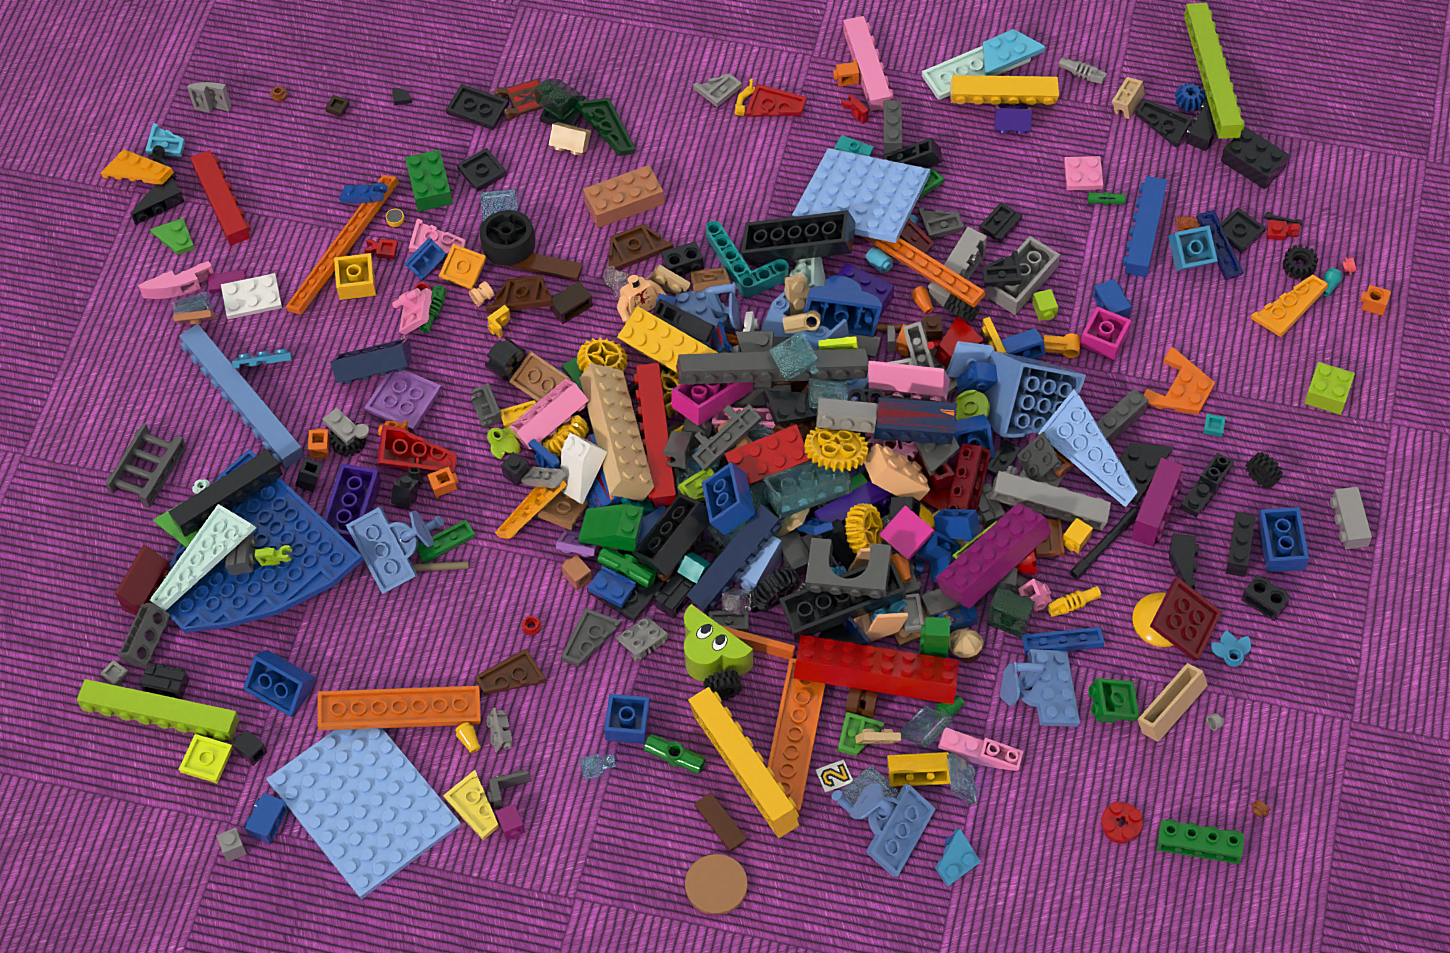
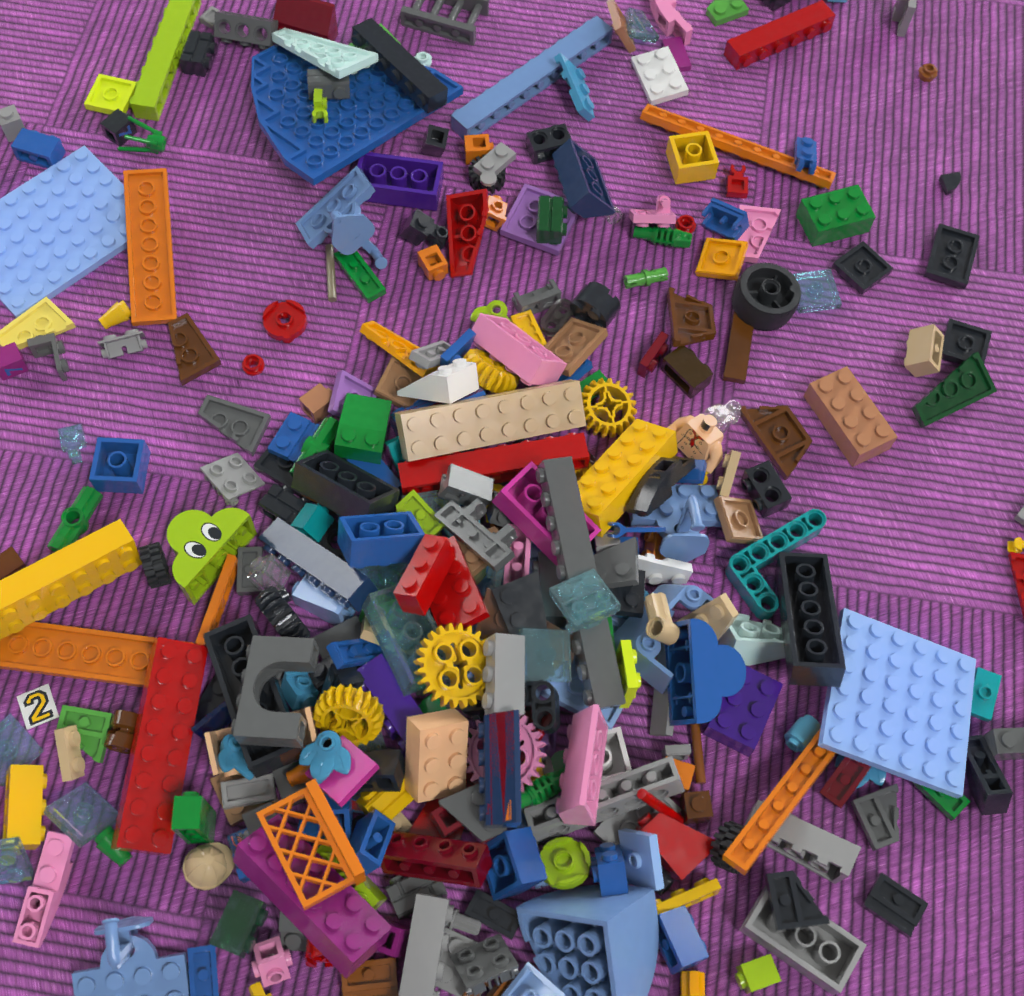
camera: 80 degrees right, 5 degrees up
(274, 714) = (156, 141): none -> green plant
(278, 682) = (193, 144): blue slope -> none
(318, 387) = (545, 142): none -> black brick
(337, 106) = (922, 124): dark brown plate -> none
(394, 217) = (782, 192): tile -> none
(413, 385) = (550, 220): none -> dark green brick
(474, 324) = (645, 277): none -> bright green pin
(481, 294) = (686, 279): light nougat wheel -> none
(492, 610) = (284, 331): none -> red plate
(498, 319) = (653, 298): yellow bracket -> none
(508, 393) = (555, 318): none -> clear smoke plate
(514, 468) = (451, 328): black brick -> none
(522, 98) = (978, 305): reddish brown flag -> none
(551, 324) = (649, 360): none -> dark red plate
(557, 97) = (982, 332): clear green slope -> none
(764, 462) = (424, 574): none -> red brick
(900, 540) = (323, 759): none -> dark azure plate
(921, 297) = (746, 794): orange cone -> none
(955, 533) = (334, 837): none -> orange fence

